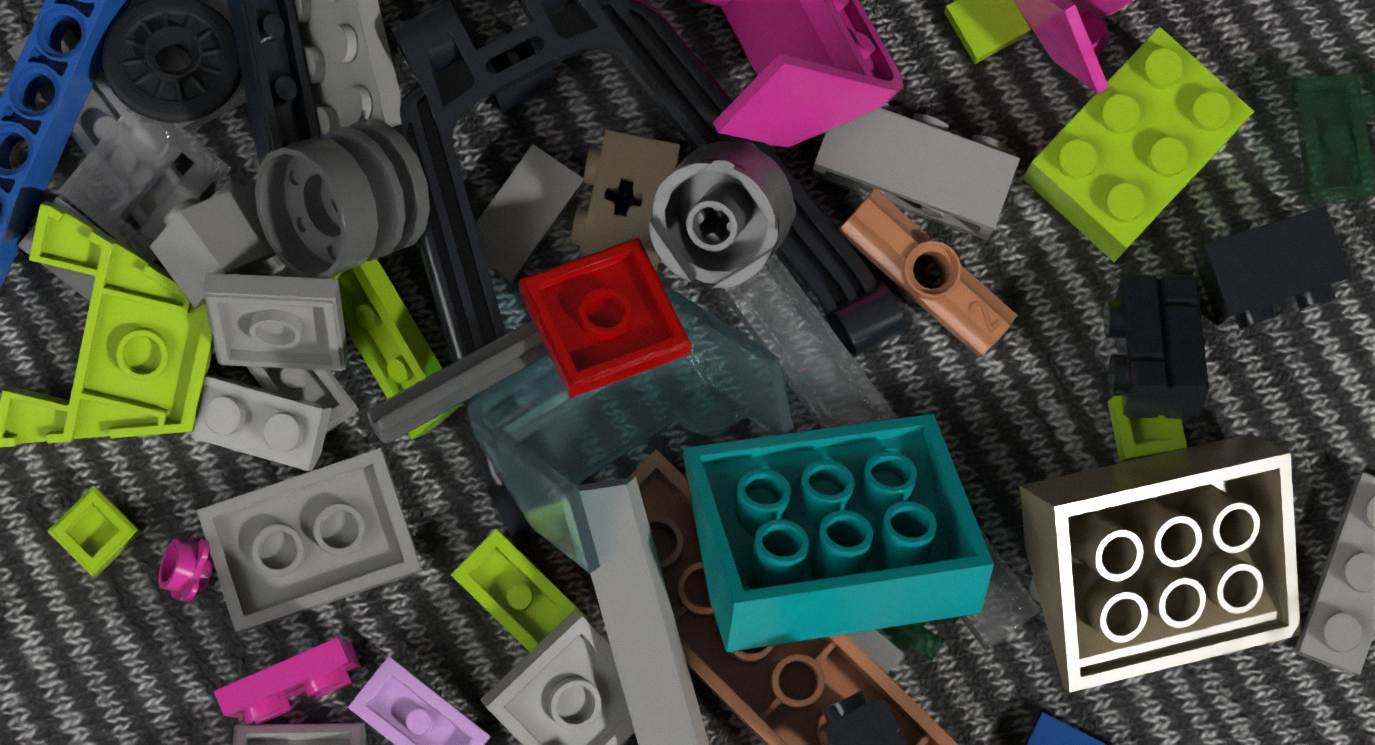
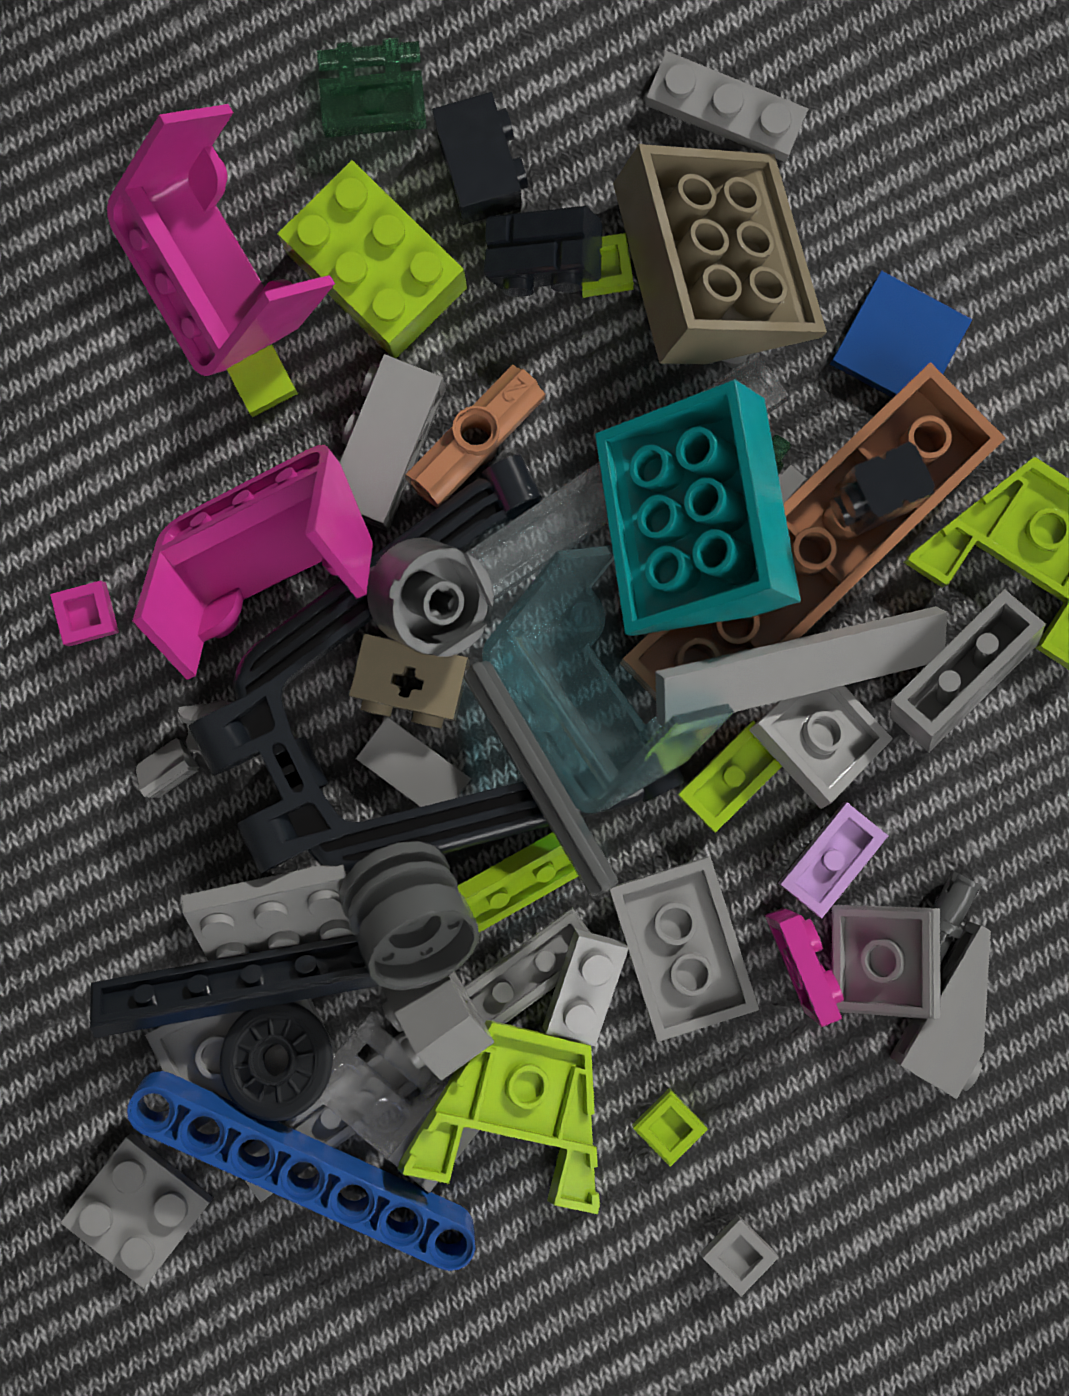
camera: 80 degrees left, 5 degrees up
(185, 568) = (704, 1051): dark pink plate -> none
(276, 321) = (507, 973): light grey tile -> none
(604, 317) = (513, 697): red tile -> none

